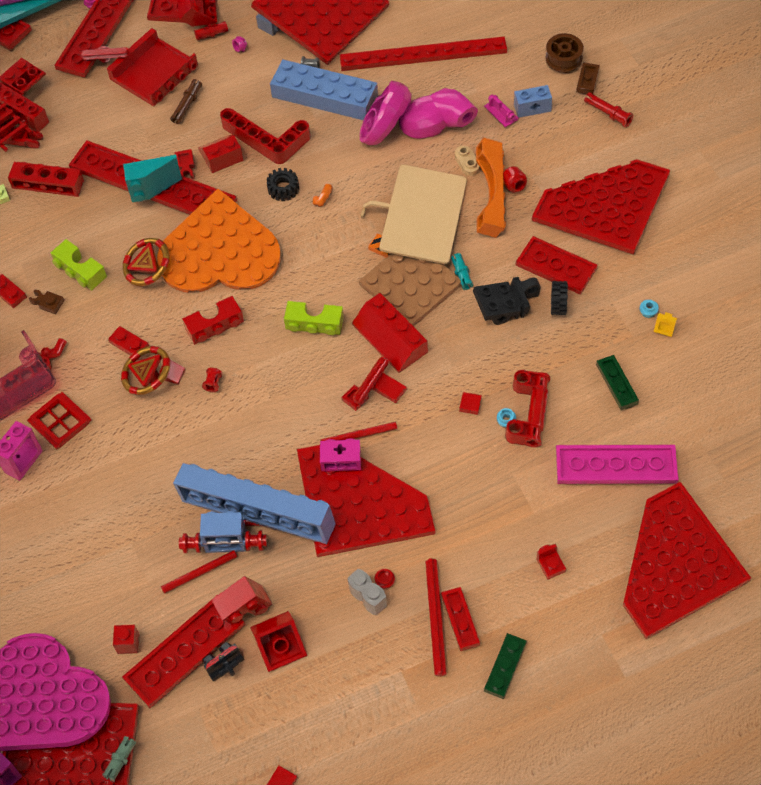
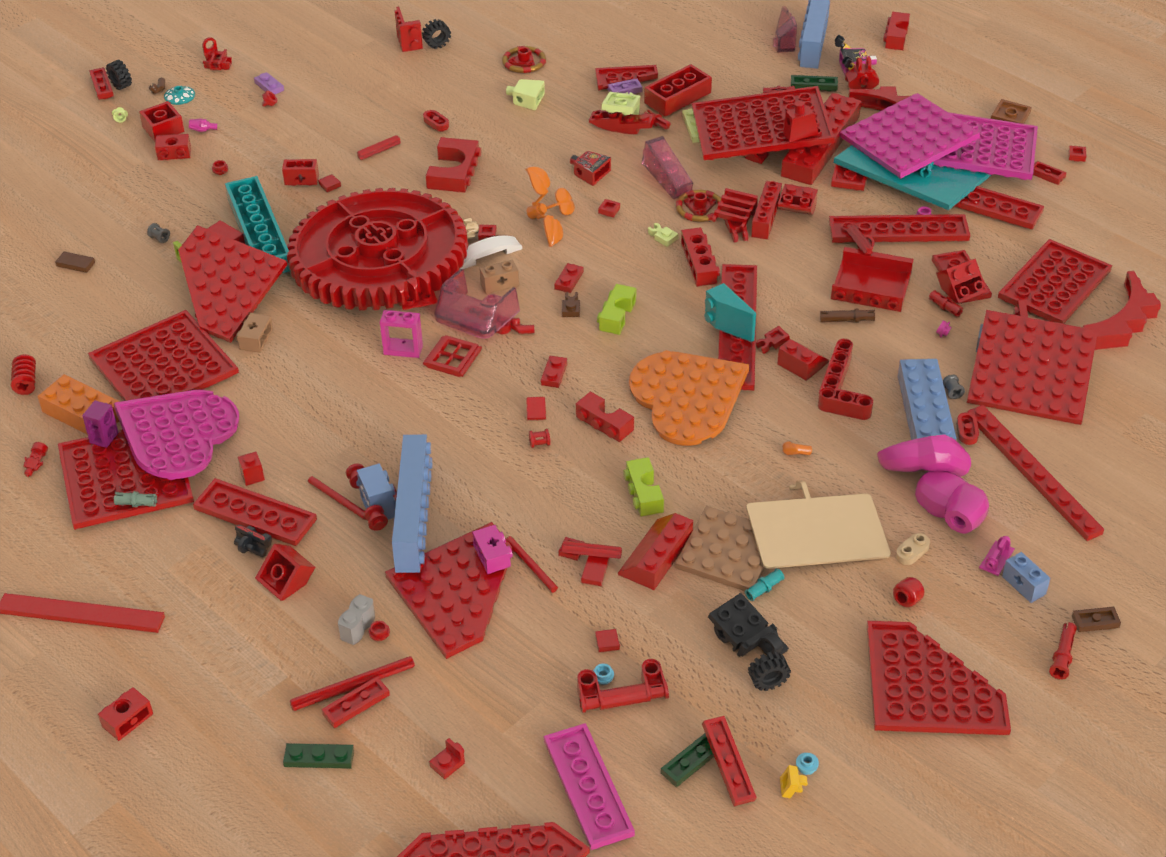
camera: 65 degrees right, 15 degrees down
(145, 261) = (641, 347): piece -> none
(145, 370) = (525, 387): piece -> none
(241, 598) = (313, 527): brick -> none
(282, 192) = (790, 407): black tyre -> none
(360, 72) = (967, 428): none -> red plate
(490, 159) = (845, 584): orange arch -> none
(556, 264) = (820, 665): red tile -> none
(564, 52) = (1115, 584): reddish brown wheel -> none
(634, 356) = (729, 761): none -> red plate

